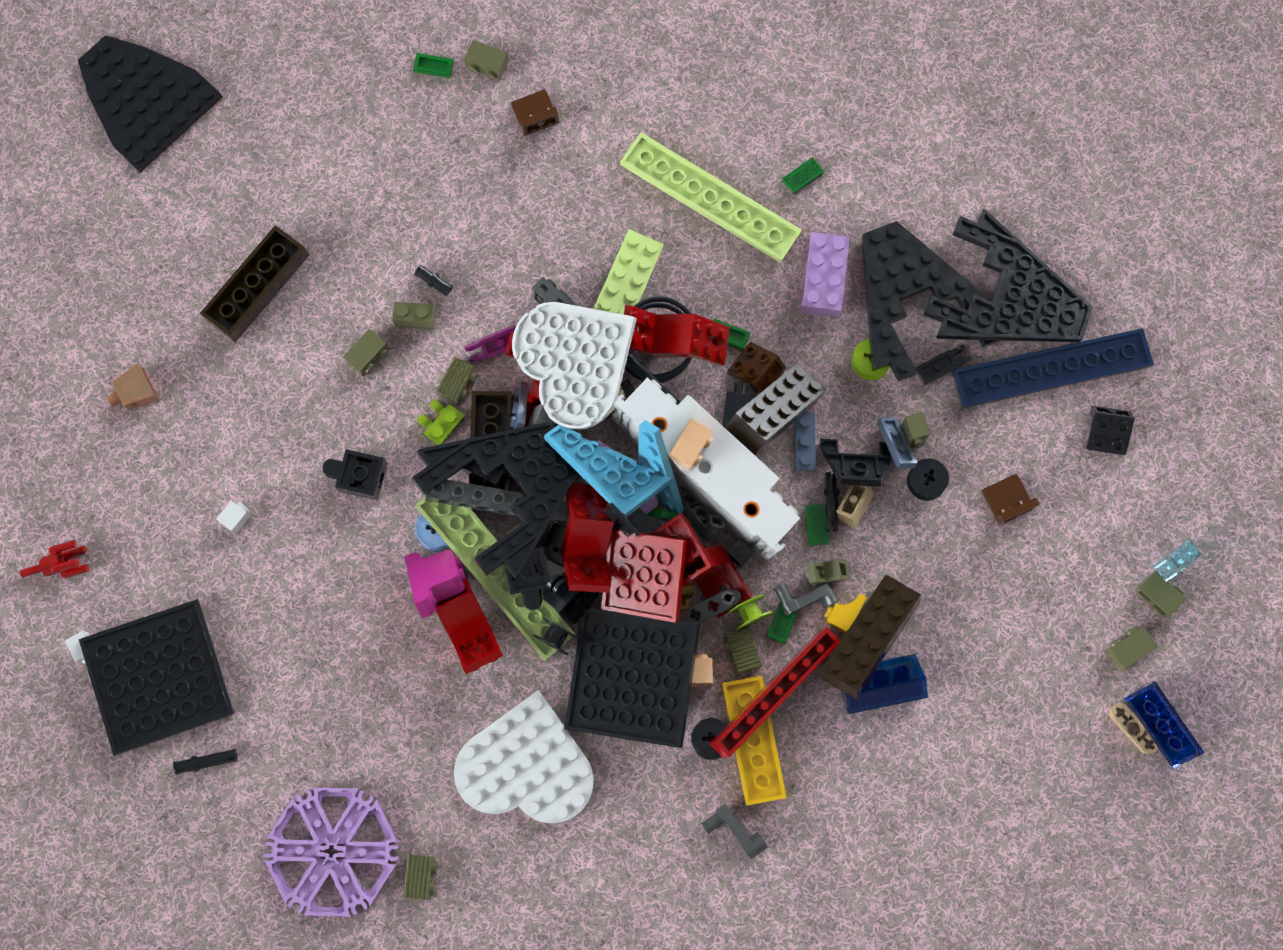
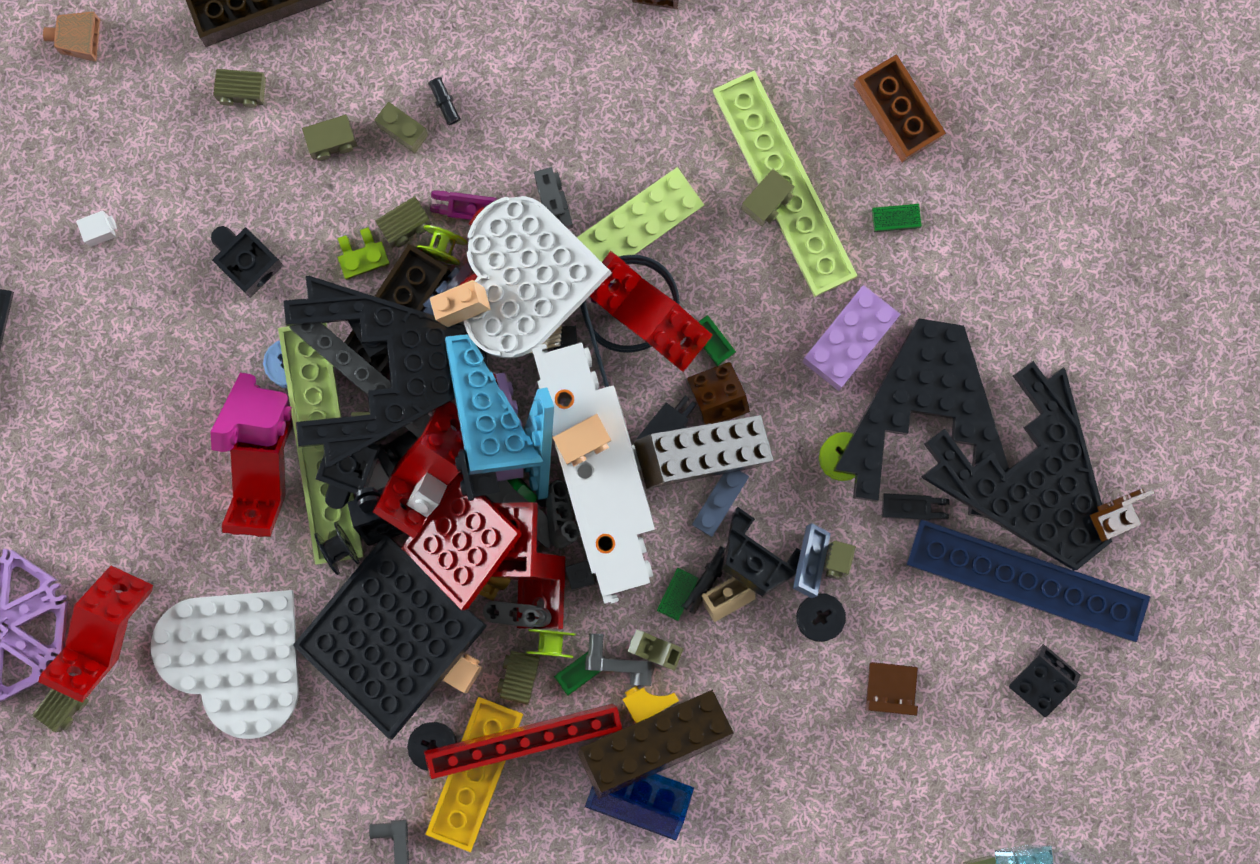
camera: 30 degrees right, 5 degrees up
(278, 356) = (239, 87): none -> olive brick
(415, 807) = (96, 633): none -> red bracket
(495, 373) = (444, 237): none -> lime piece
(540, 405) = (460, 303): none -> light nougat brick
(599, 556) = (426, 495): none -> white brick
(706, 212) = (768, 197): none -> olive brick
(758, 100) = (899, 108): none -> dark orange brick
(1086, 287) = (1120, 517): none -> bracket

